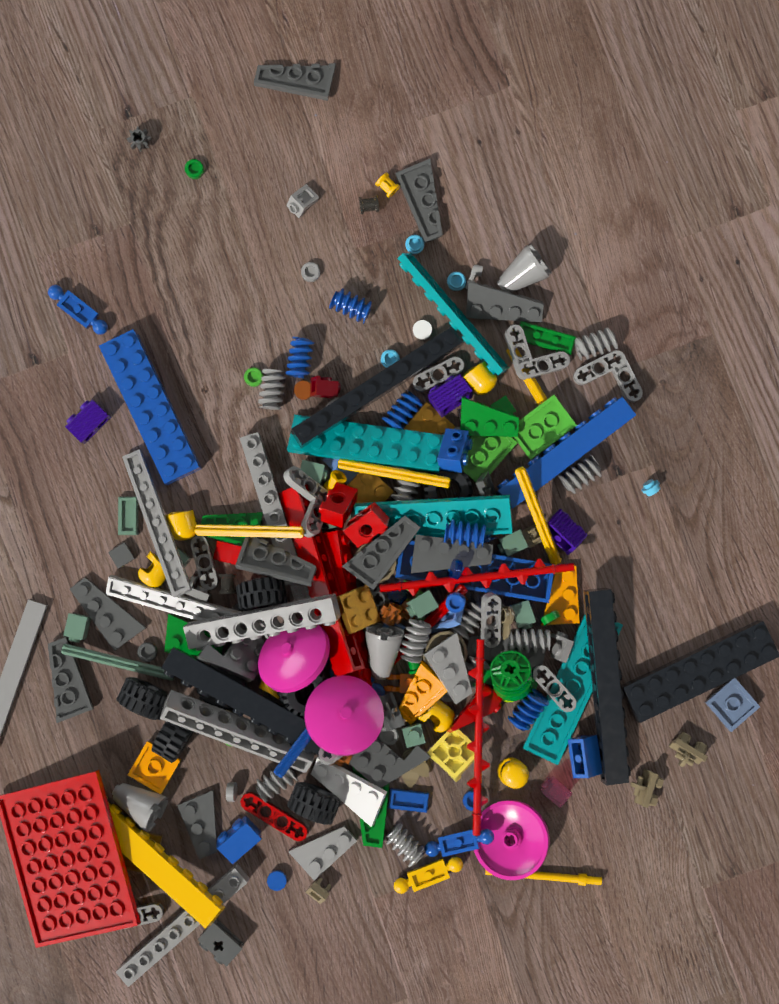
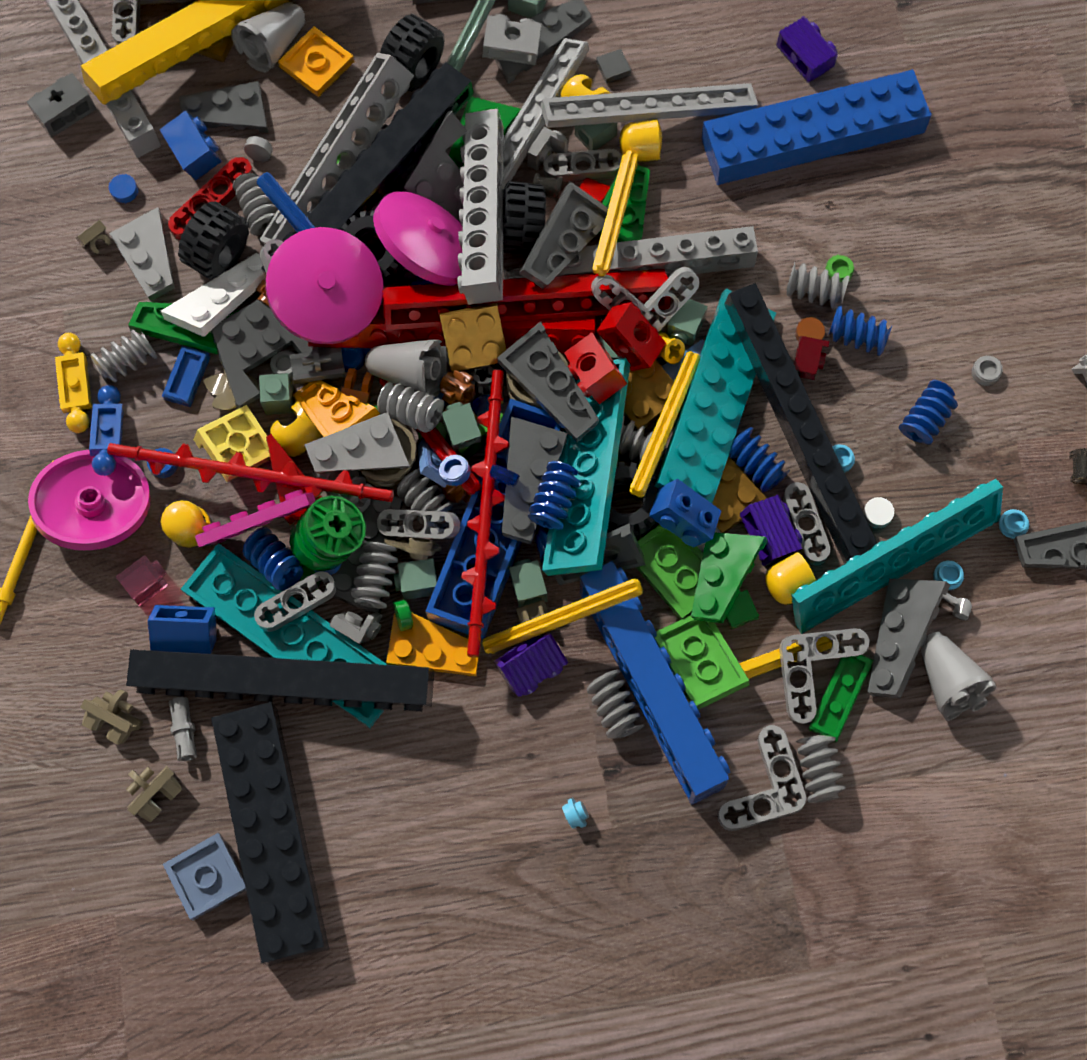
camera: 100 degrees right, 15 degrees down
(77, 309) = (967, 60): blue plate -> none
(123, 640) = (502, 48): none -> light grey brick
(128, 516) = (664, 78): sand green tile -> none
(147, 652) = (477, 75): dark grey tile -> none
(171, 741) = (341, 73): black tyre -> none
(513, 731) = (240, 522): none -> dark pink wing
(645, 741) = (182, 729): none -> light grey pin

